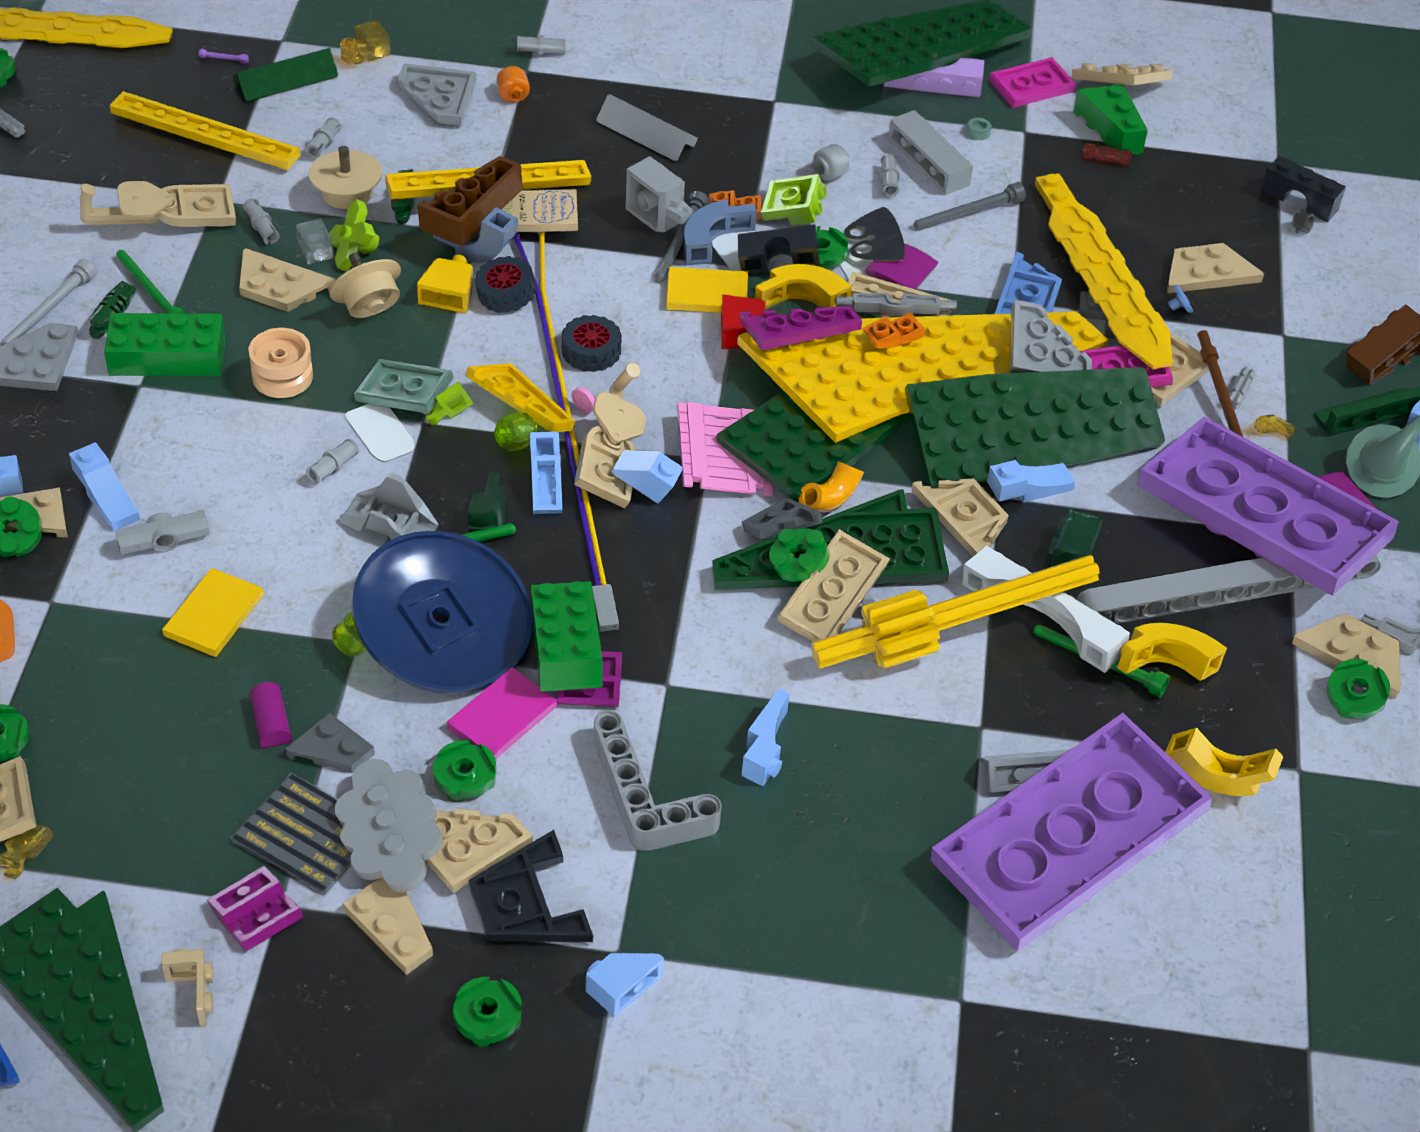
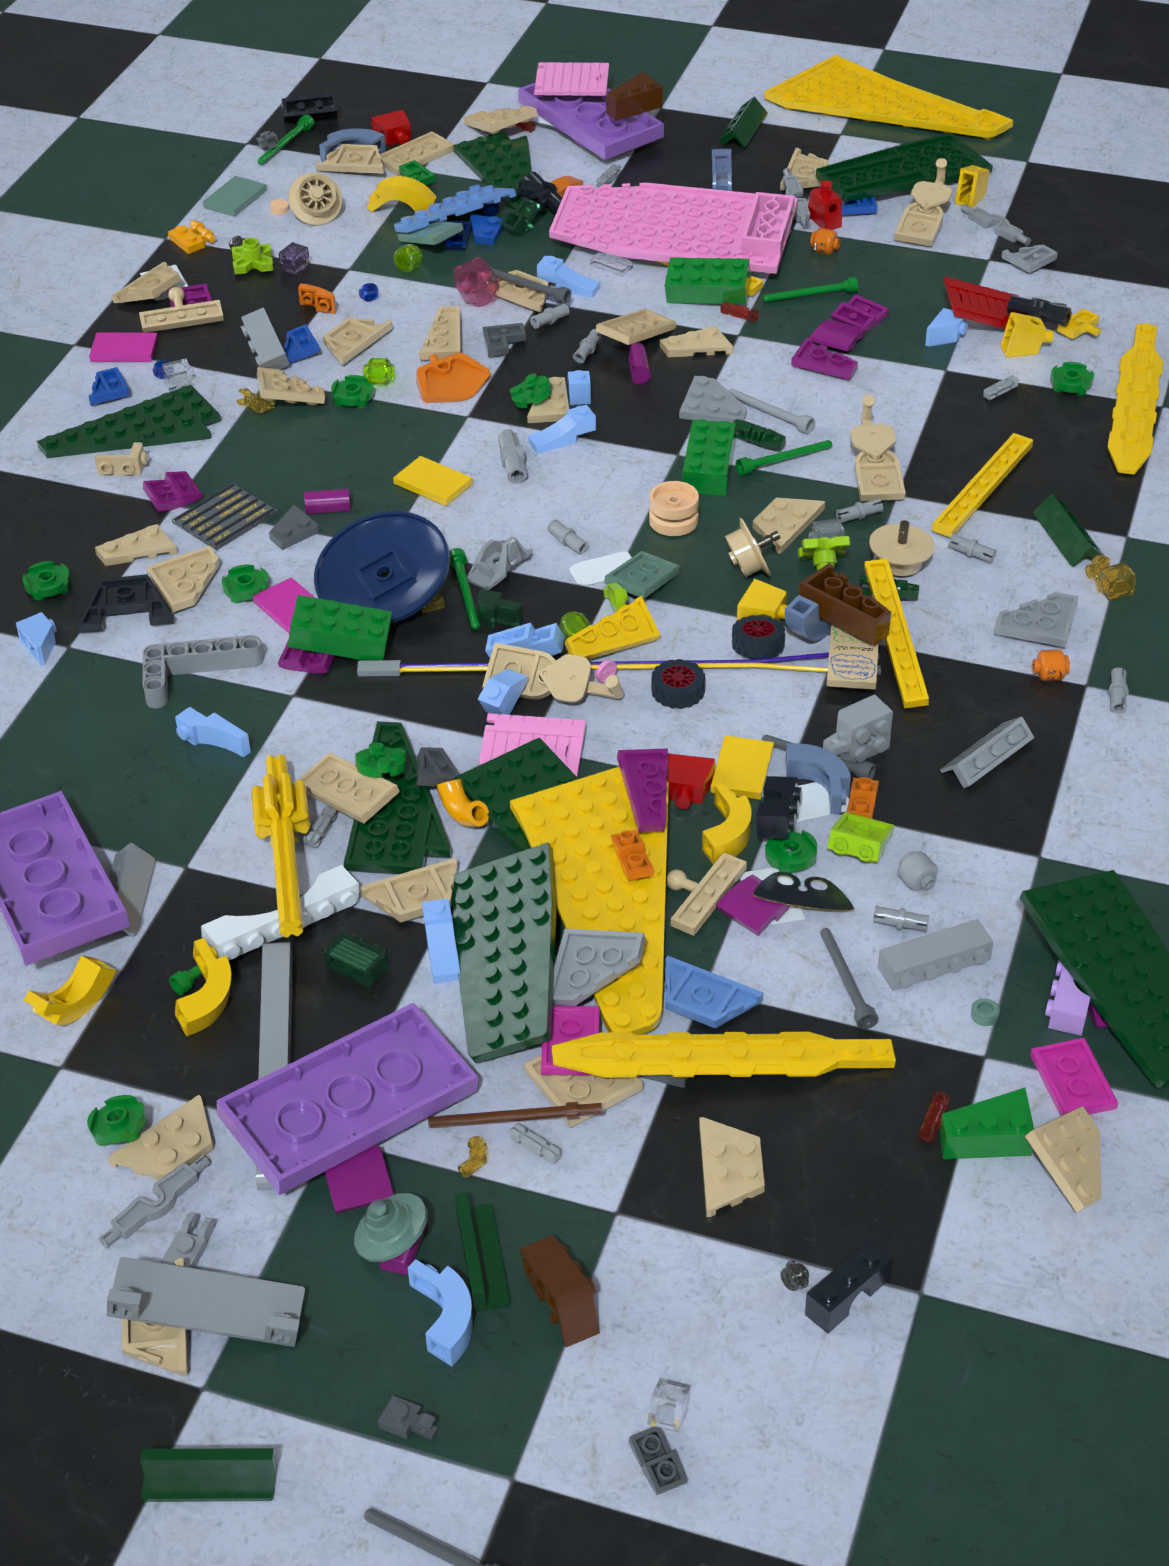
camera: 105 degrees right, 5 degrees down
(243, 58) = (1096, 512): medium lavender hinge -> none
(388, 825) = (205, 539): light grey plate -> none
(884, 304) = (684, 888): light grey piece -> none
(1180, 300) = (673, 1128): medium blue plant -> none

